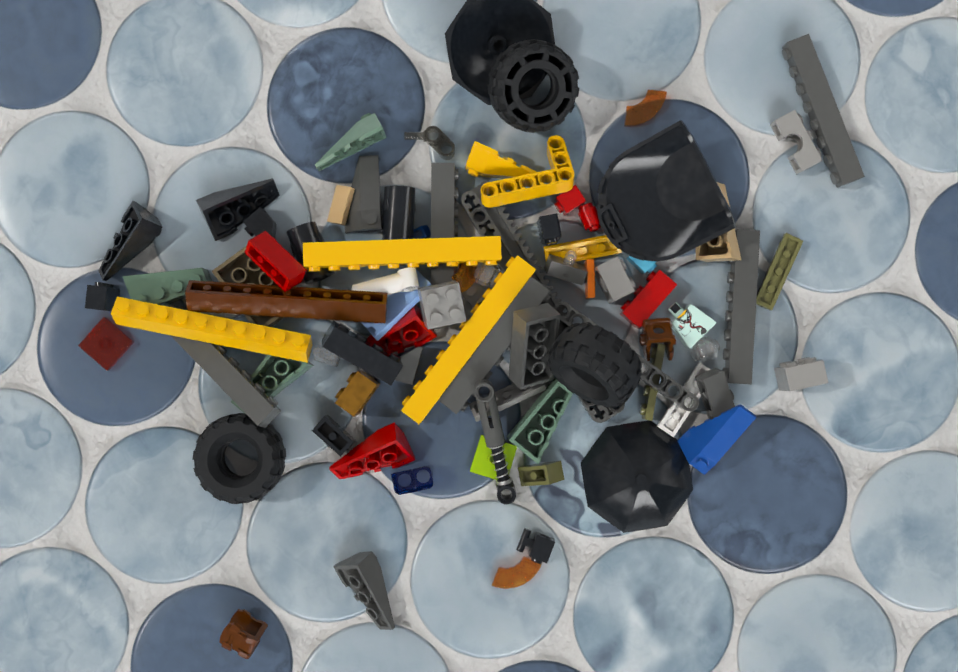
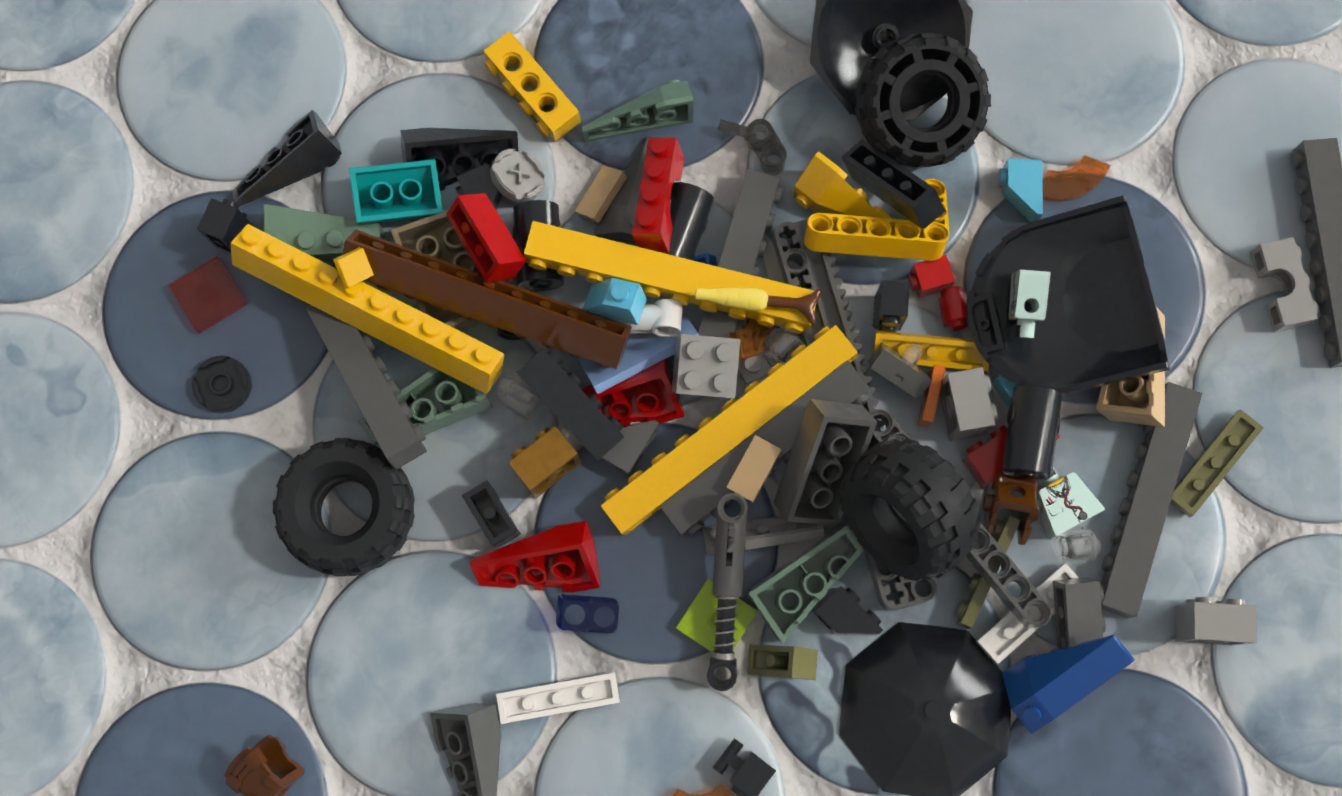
camera: 20 degrees right, 10 degrees down
(135, 399) = (221, 384): none -> black tile
(196, 308) = (353, 267): none -> yellow tile
(206, 244) = (395, 191): none -> teal slope
(250, 124) = (509, 52): none -> yellow brick
(282, 208) = (517, 175): none -> light grey tile
(372, 279) = (616, 300): none -> medium azure slope
(380, 218) = (652, 218): none -> red arch
(409, 535) = (558, 698): none -> white plate
(462, 254) = (757, 300): none -> light yellow piece
(490, 361) = (754, 468): none -> tan tile
(529, 148) = (893, 184): none -> black brick
(573, 435) = (845, 616): none -> black slope
(613, 122) = (1023, 186): none -> medium azure slope
(635, 195) = (1033, 288): none -> light aqua torso
(659, 289) = (1032, 432): none -> black piece

